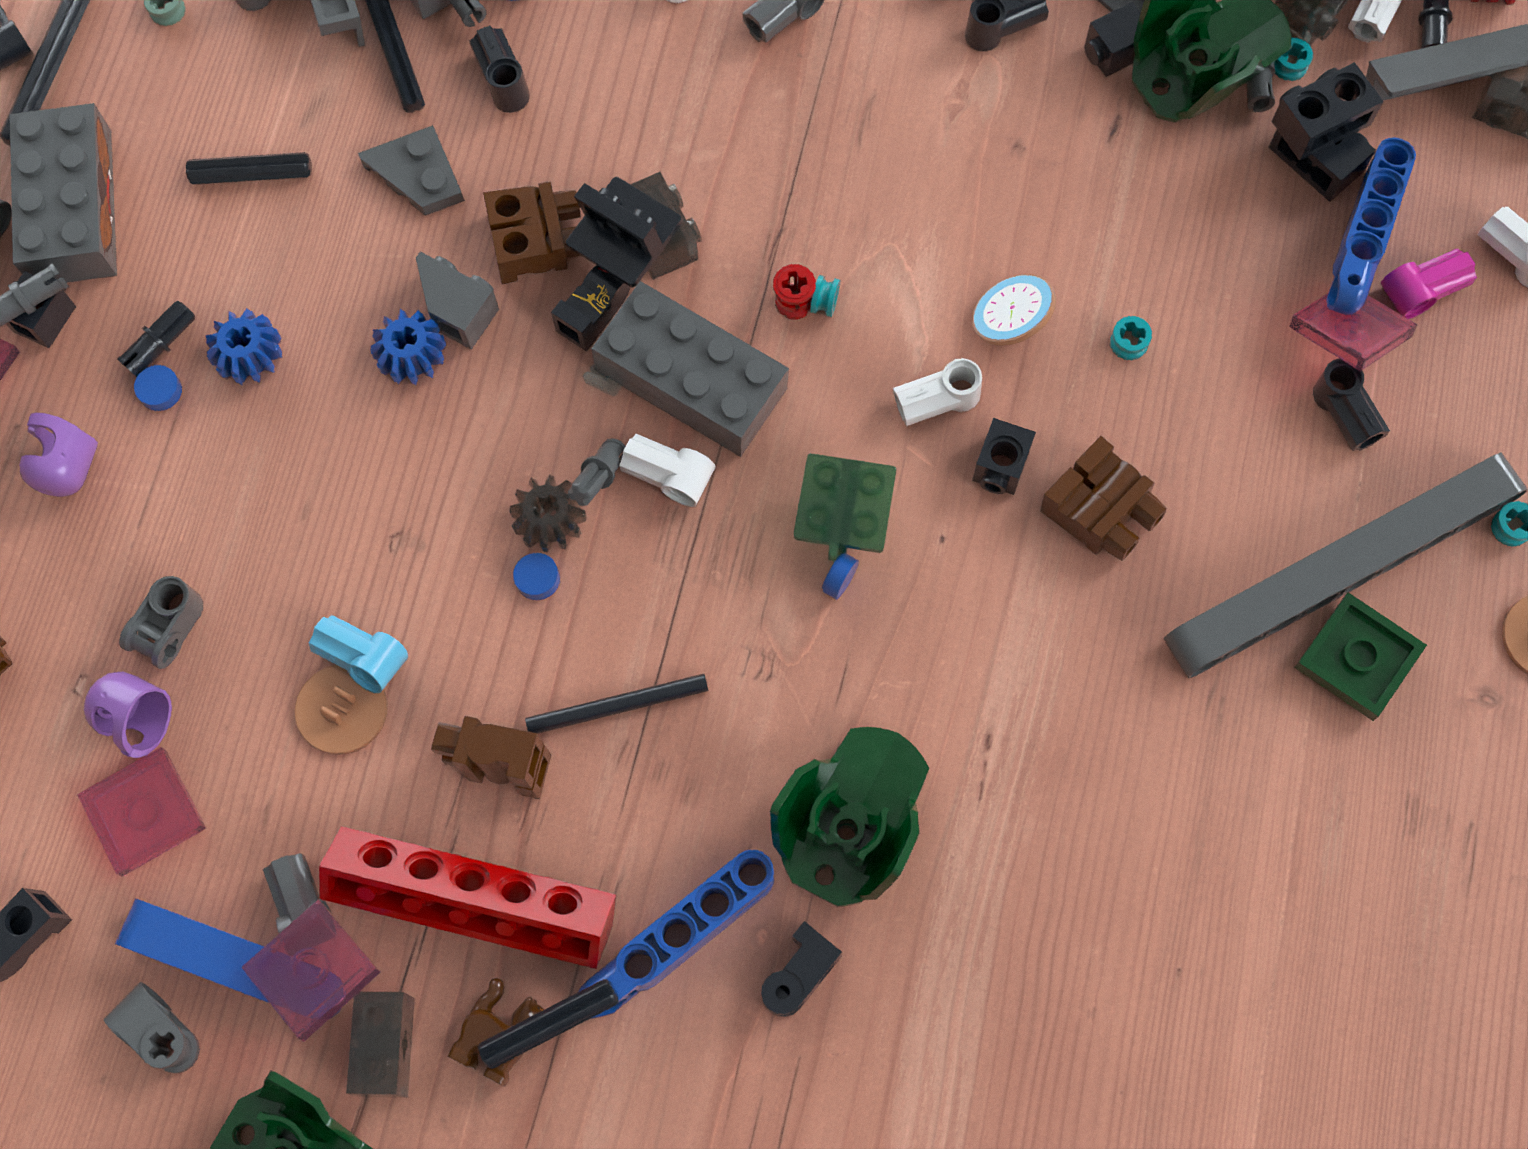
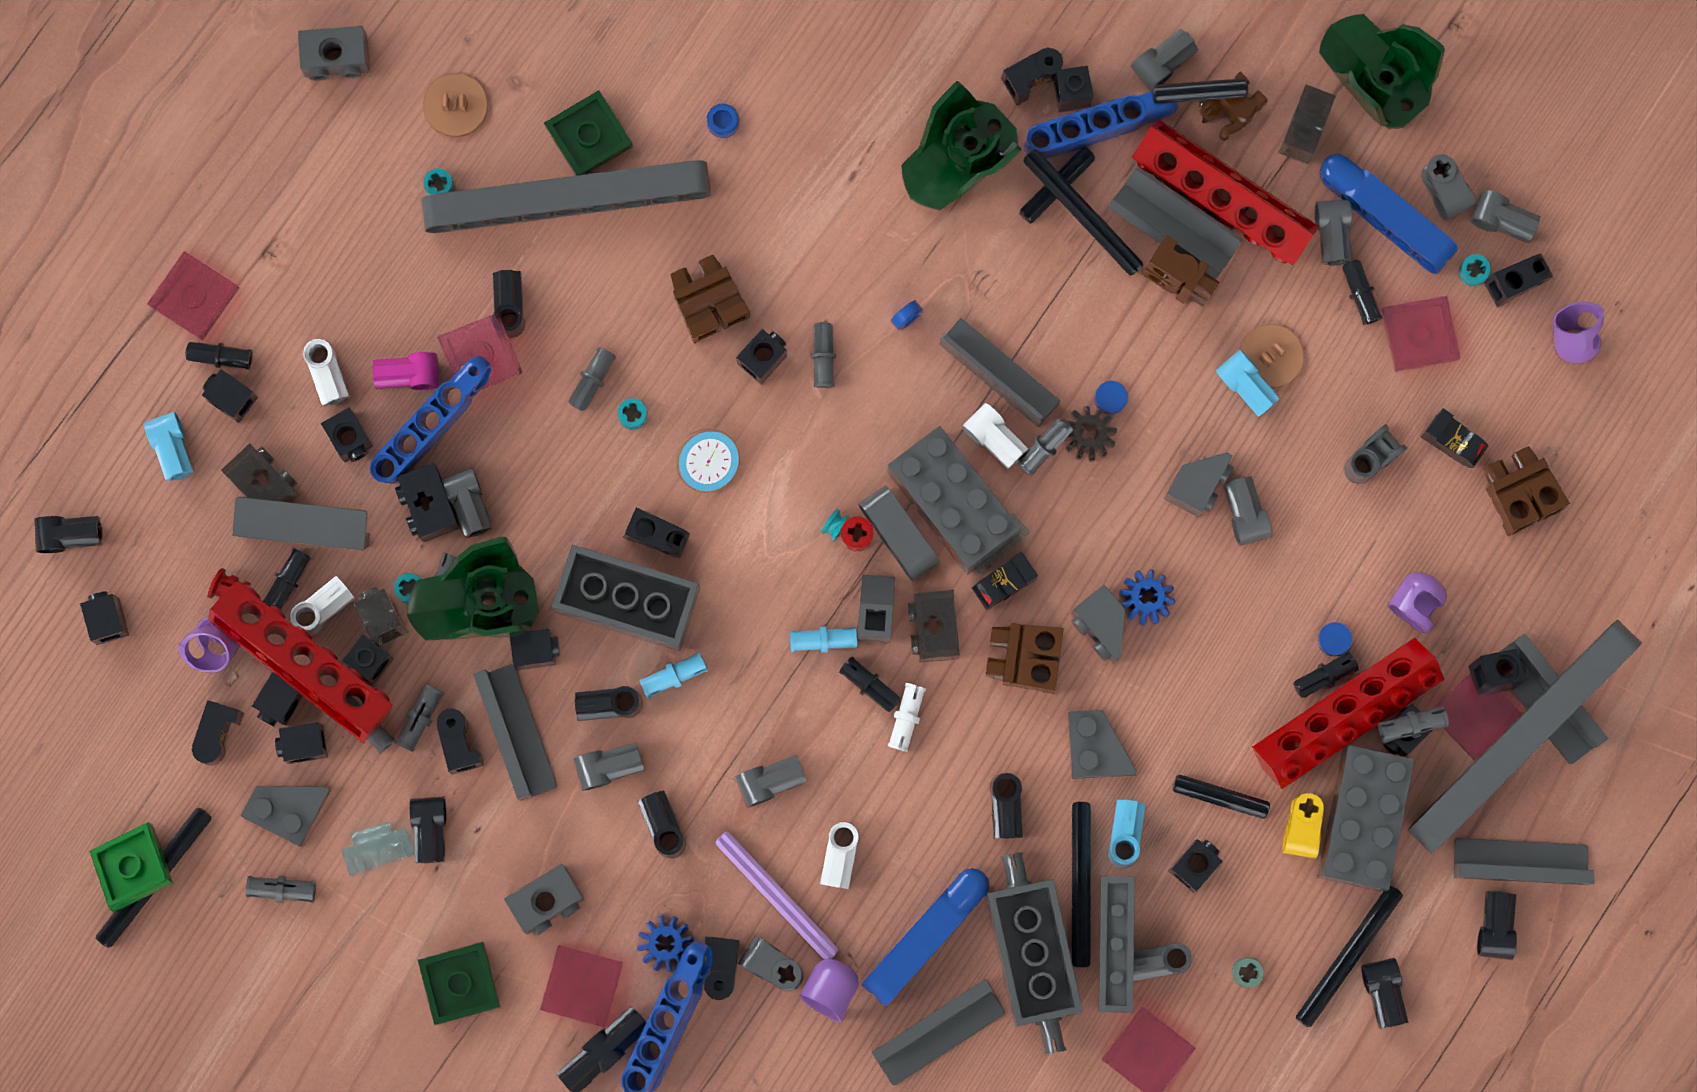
camera: 165 degrees left, 10 degrees up
(55, 680) = (1454, 439): none -> black leg
(68, 1019) = (1497, 214): none -> dark grey piece
(77, 917) = (1468, 262): none -> teal bush
(128, 702) = (1410, 399): medium lavender helmet -> none
(138, 167) = (1304, 834): none -> yellow piece
(193, 226) = (1348, 713): none -> red brick
(237, 834) = (1361, 292): none -> black axle
(244, 346) = (1263, 654): blue gear -> none
(259, 68) = (1186, 875): none -> black brick
(308, 487) = (1249, 520): none -> dark grey piece
(310, 970) = (1337, 176): clear pink tile -> none
(348, 86) = (1126, 830): none -> medium azure piece
(387, 504) = (1196, 482): none -> dark grey slope
(525, 826) = (1164, 212): none -> dark grey panel
(617, 704) = (1086, 288): black bar -> none
(622, 229) = (964, 613): black bracket -> none
(624, 1057) = (1158, 64): none -> dark grey piece
(653, 121) = (906, 717): none -> white pin
(658, 797) = (1083, 212): none -> black axle
(694, 549) = (999, 372): none -> dark grey panel
(706, 829) = (1045, 197): none -> black axle
(710, 140) = (870, 684): none -> black axle
(733, 968) = (1073, 88): none -> black brick
(736, 213) = (876, 609): none -> dark grey slope
(744, 312) = (899, 533): none -> dark grey beam
(786, 168) = (823, 639): none -> medium azure pin
(844, 504) = (886, 355): clear green bracket -> none
(926, 488) = (823, 355): none -> dark grey axle
(935, 395) = (790, 420): white piece -> none
(944, 72) = (673, 675): none -> medium azure pin
(1037, 208) = (656, 533): none -> black leg
(1039, 120) = (626, 597): none -> dark grey brick
(1193, 747) = (722, 120): none -> blue tile
(1200, 359) = (591, 379): none -> dark grey axle
(1282, 173) = (465, 496): none -> dark grey piece
(1329, 115) = (423, 502): black brick -> none
(1472, 181) = (337, 426): none -> black brick

